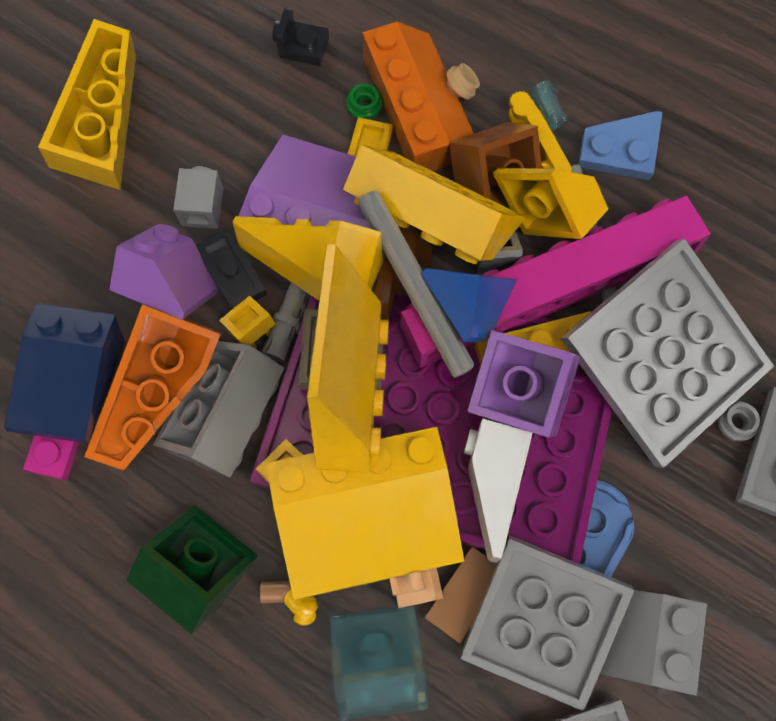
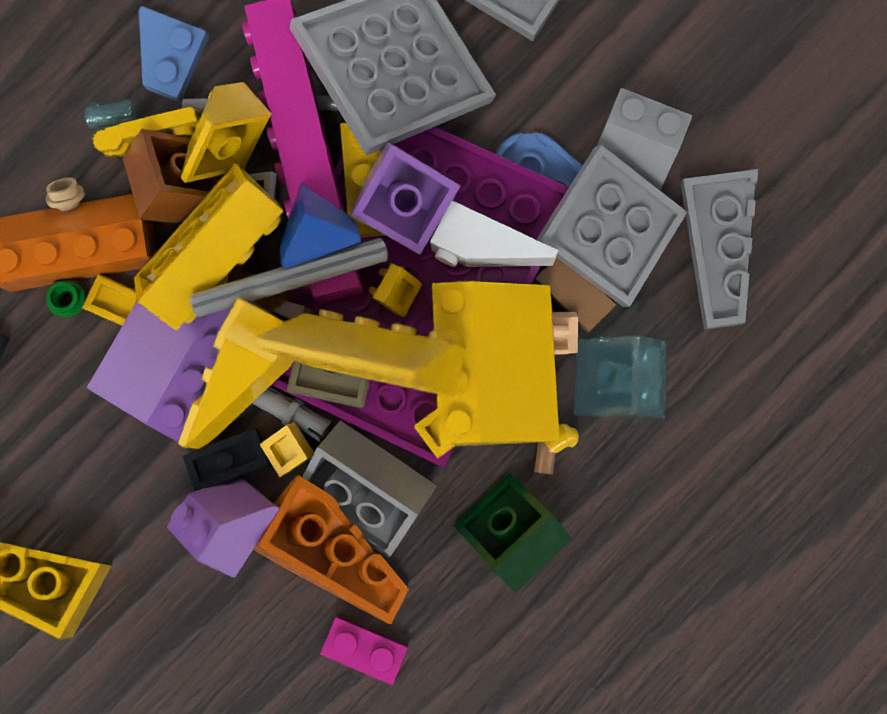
camera: 80 degrees left, 10 degrees up
(63, 372) = (306, 635): dark blue slope -> none
(198, 197) = (141, 482): light grey brick -> none
(426, 397) = (396, 289): none -> yellow tile
(749, 418) = (467, 9): light grey plate -> none

